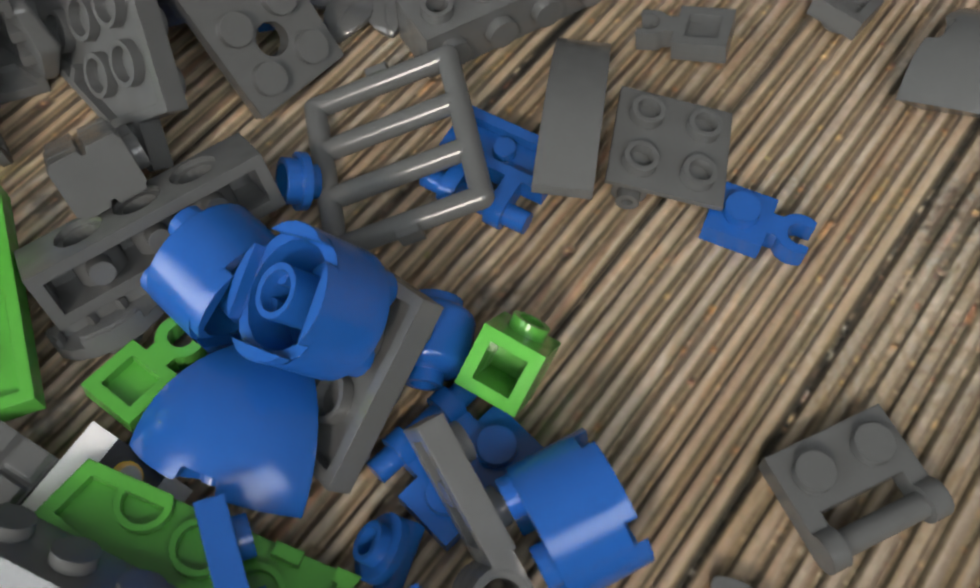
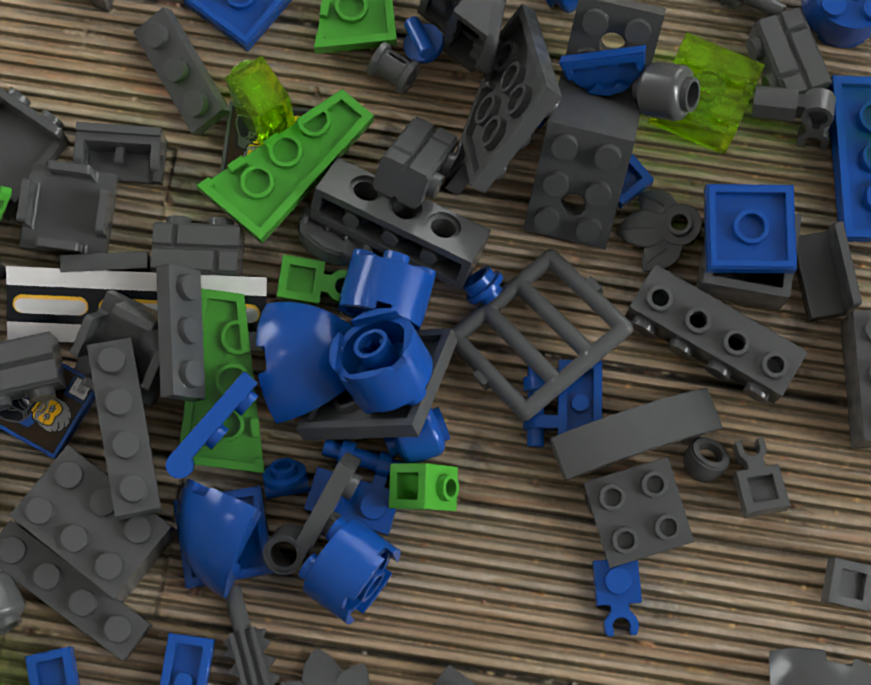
camera: 60 degrees right, 15 degrees up
(638, 71) = (701, 468): none -> dark grey piece

